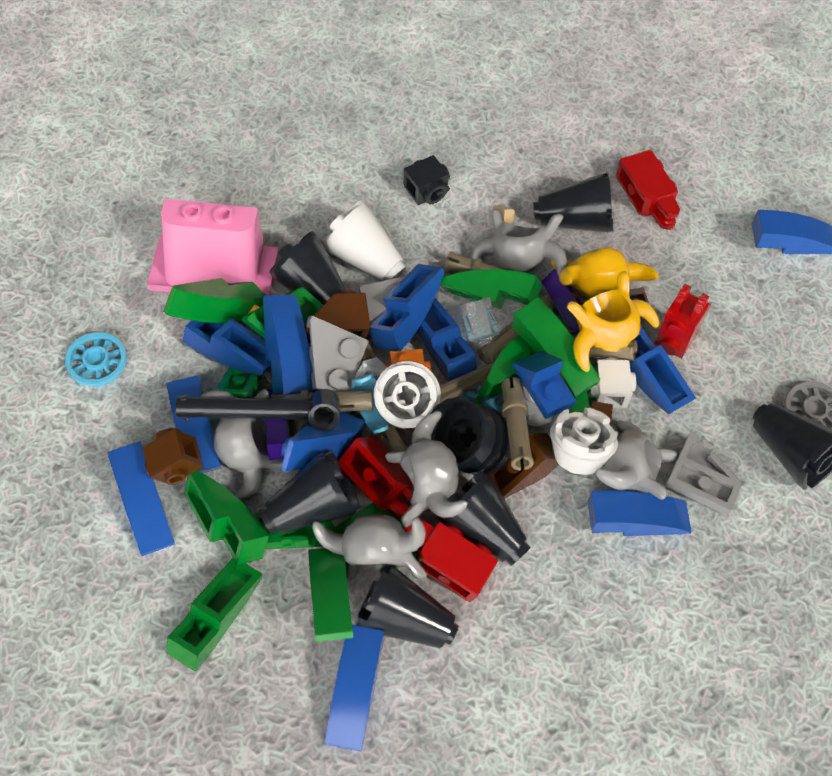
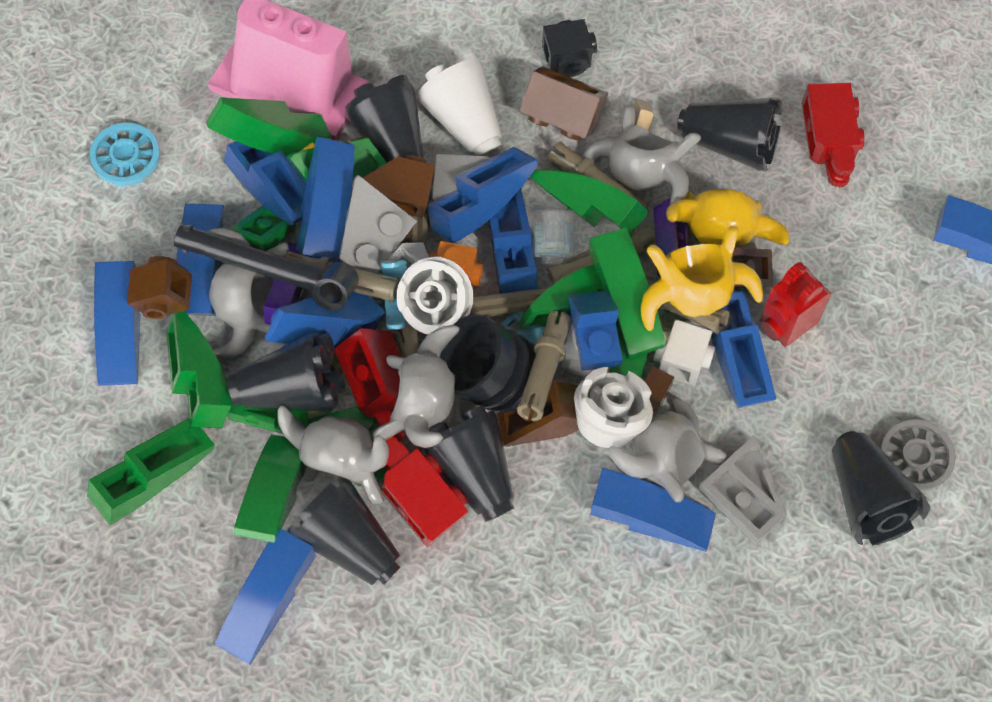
camera: 20 degrees right, 5 degrees up
(441, 222) = (563, 103): none -> brick

